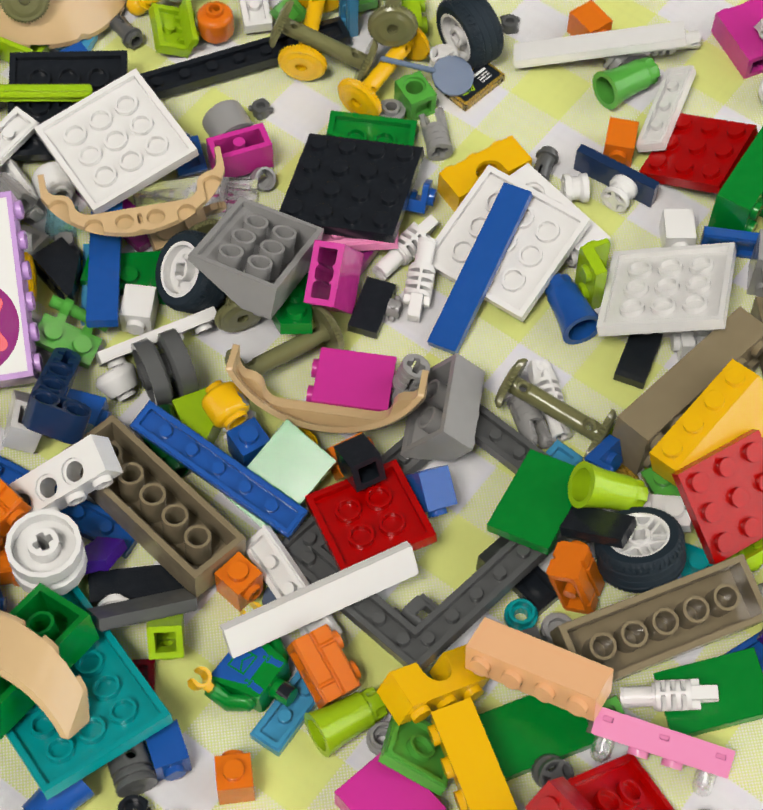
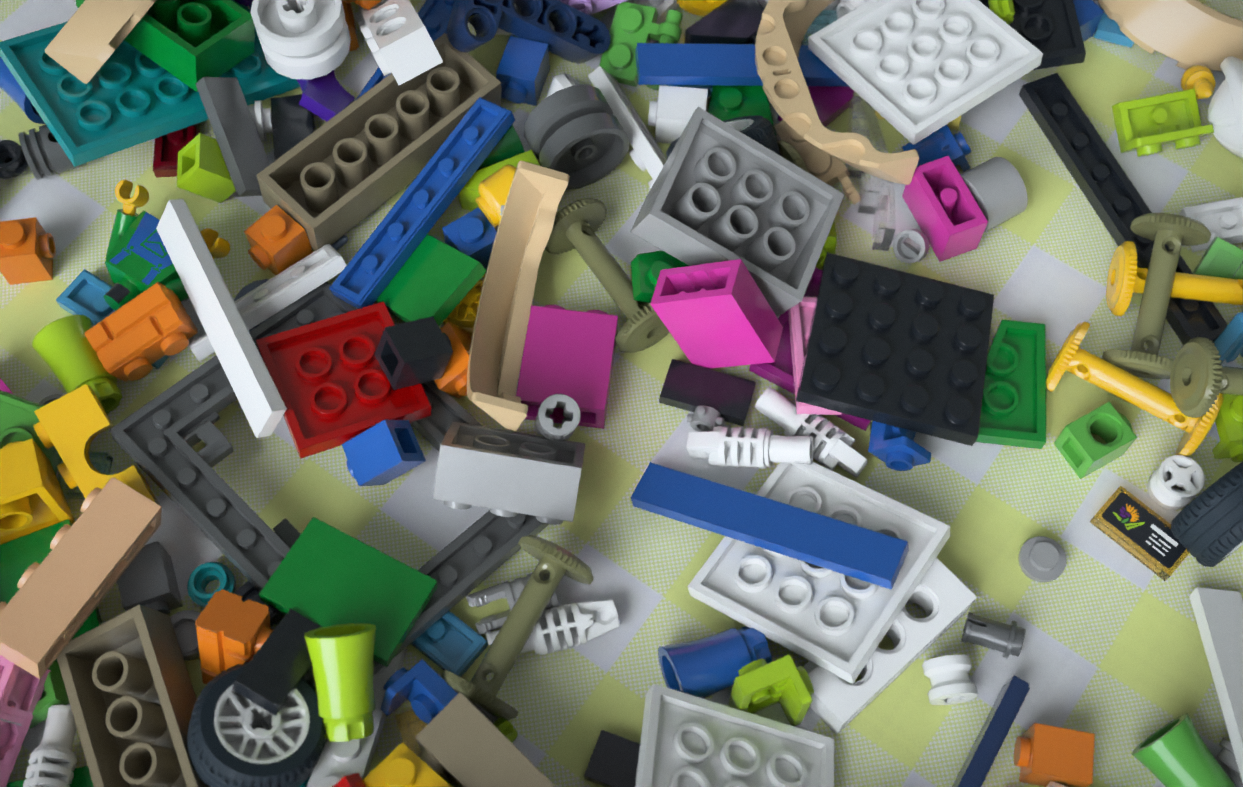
camera: 90 degrees right, 5 degrees up
(130, 35) = (1137, 77): dark grey pin -> none
(169, 753) = (68, 187): blue brick -> none
(215, 22) = (1179, 169): orange head -> none
(261, 109) = (1040, 242): dark grey piece -> none
(392, 108) = (1058, 419): light grey plate -> none
(436, 136) = (1029, 472): light grey hinge -> none
(450, 73) = (1142, 487): sand blue piece -> none
(458, 179) = (990, 565): yellow arch -> none
(492, 132) = (1042, 559): none -> light grey plate
(619, 192) = (949, 752): white wheel -> none

